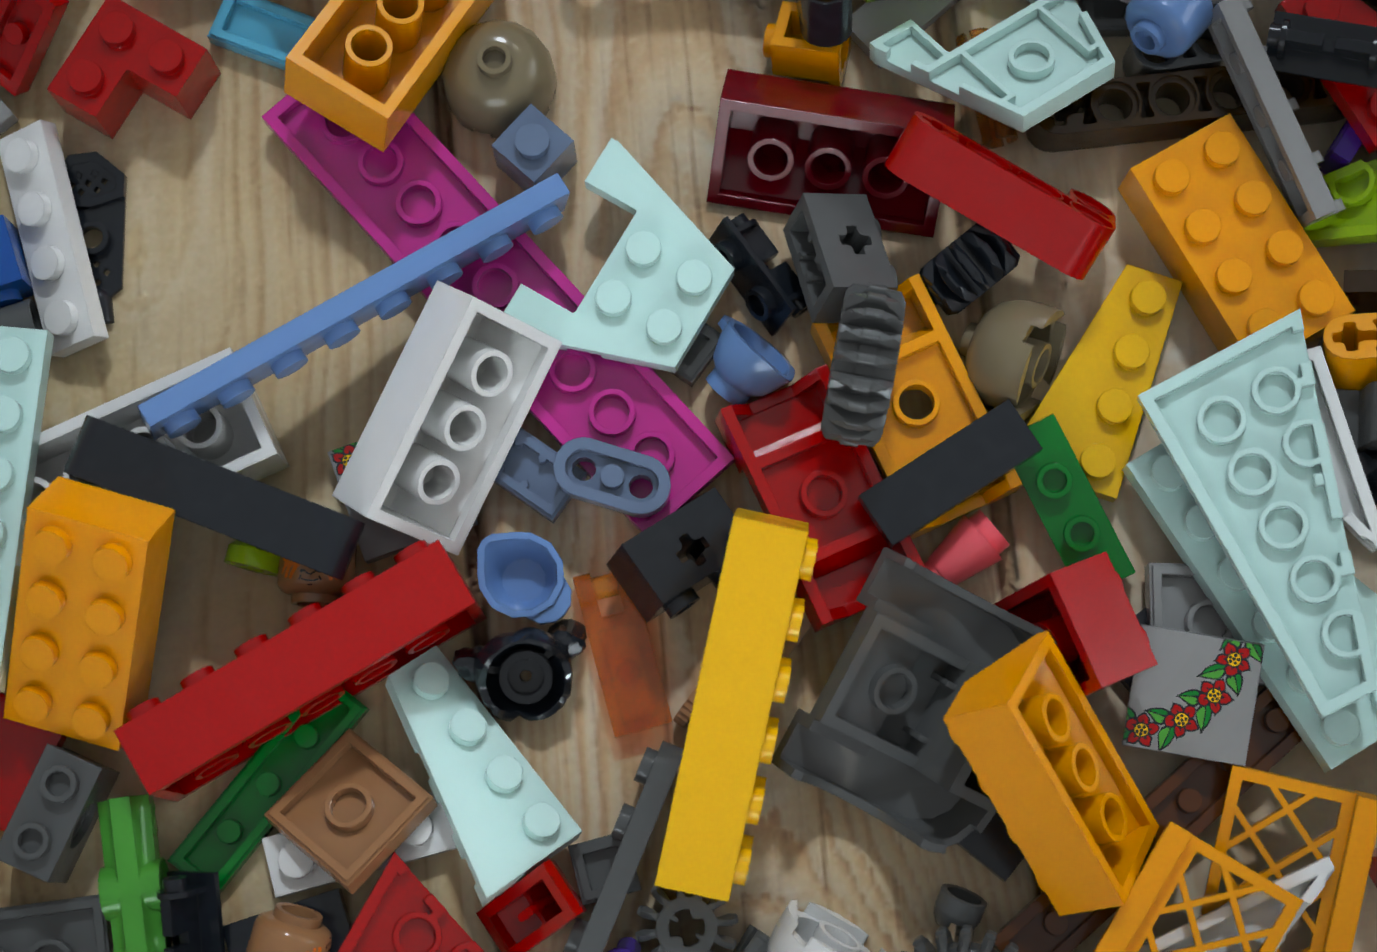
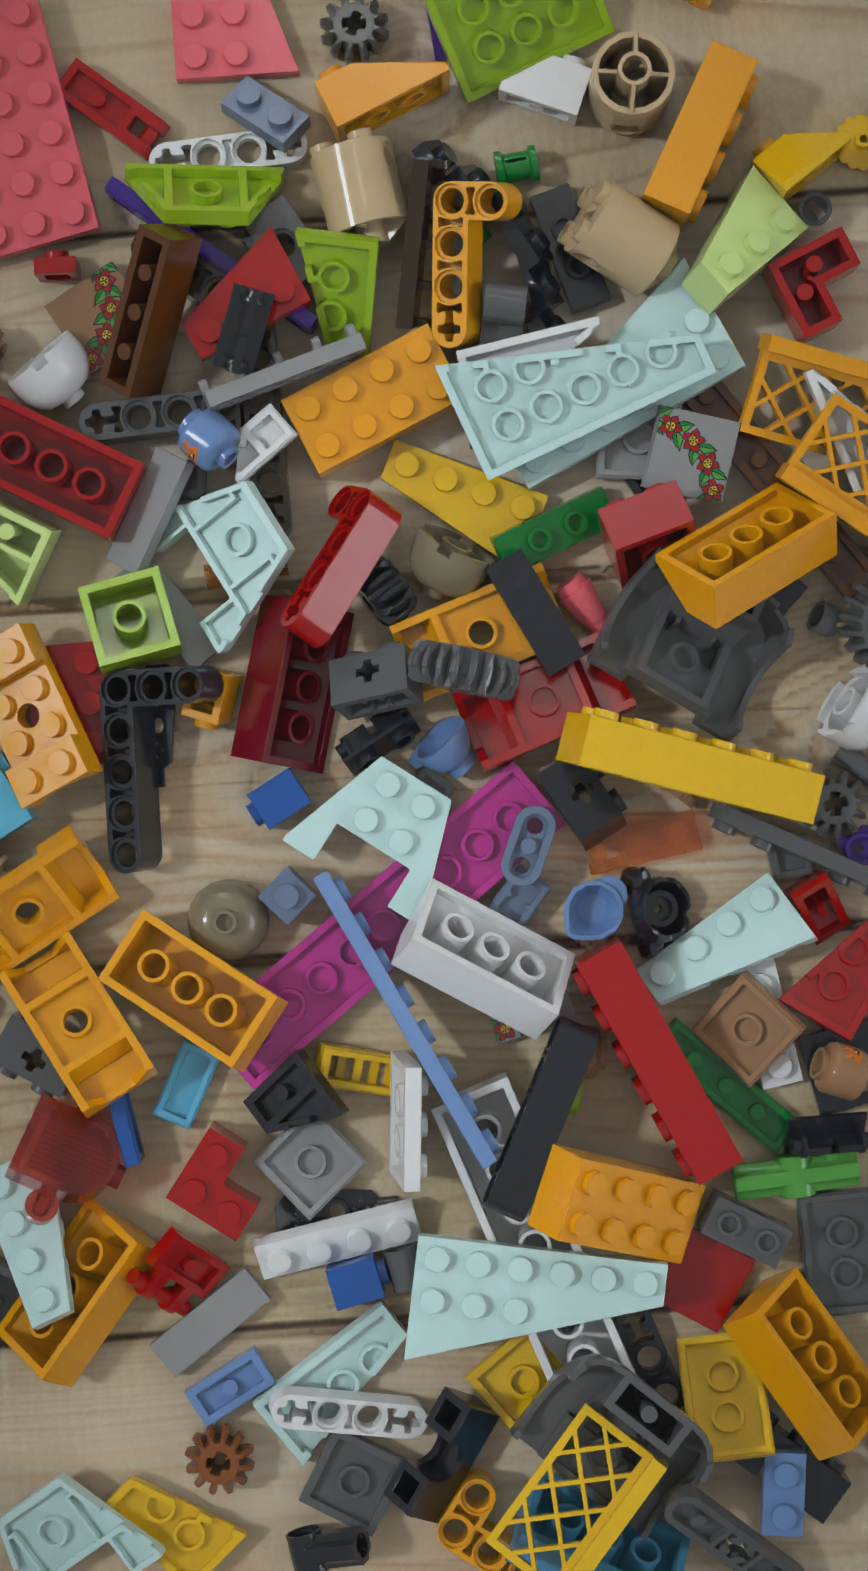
camera: 85 degrees left, 10 degrees up
(161, 199) = (310, 1164): none -> light grey tile
(205, 318) = (407, 1121): none -> white plate
(252, 168) = (294, 1096): none -> black wing
(273, 235) = (323, 1059): none -> yellow slope
(668, 138) = (277, 799): none -> blue brick
(1170, 89) = (261, 441): none -> white tile

